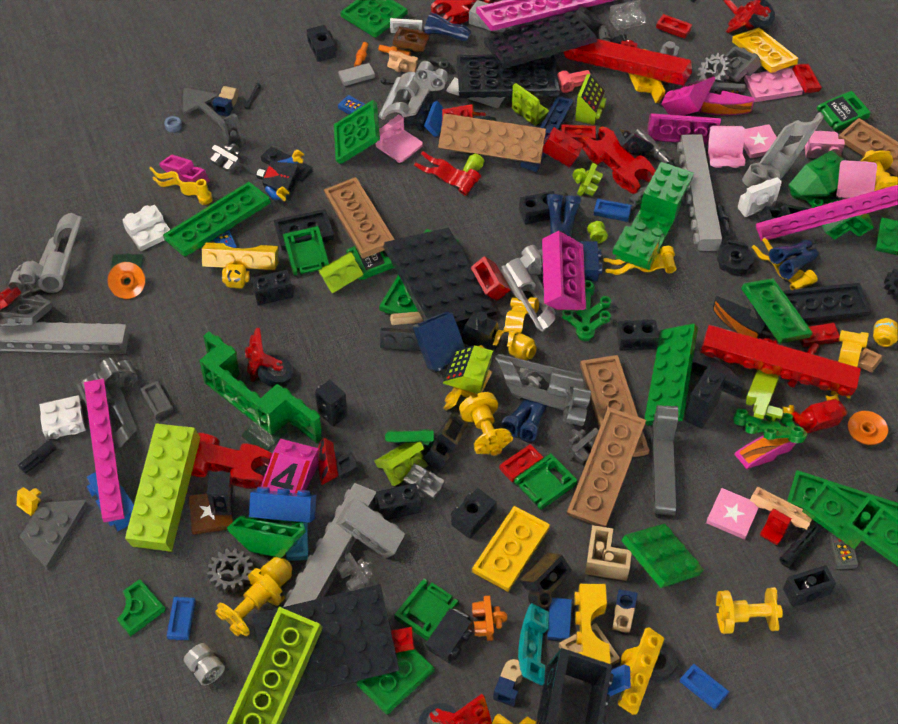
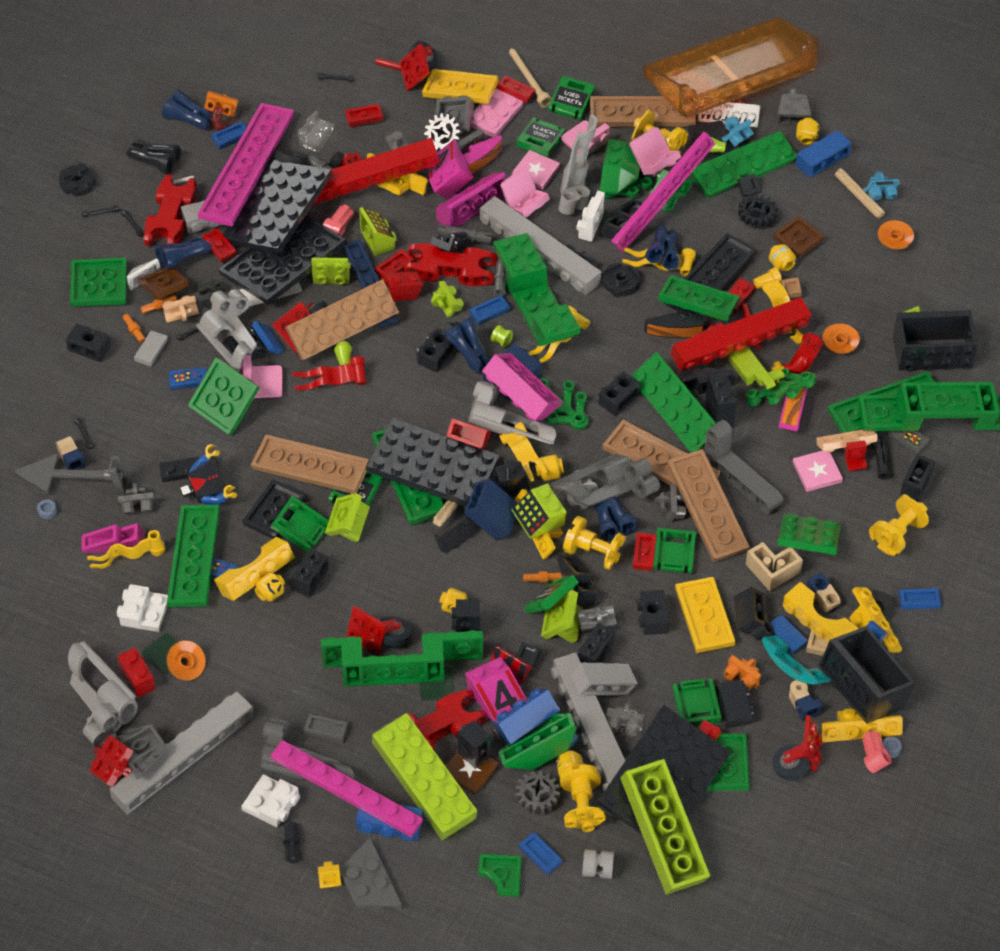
camera: 45 degrees left, 0 degrees up
(88, 263) = (136, 672): none -> red brick
(344, 382) = (449, 599): none -> yellow head
(425, 419) = (541, 576): none -> orange bar
(476, 41) = (219, 245): none -> red plate
(785, 115) = (542, 133): none -> green container
(821, 96) = (542, 97): none -> tan piece

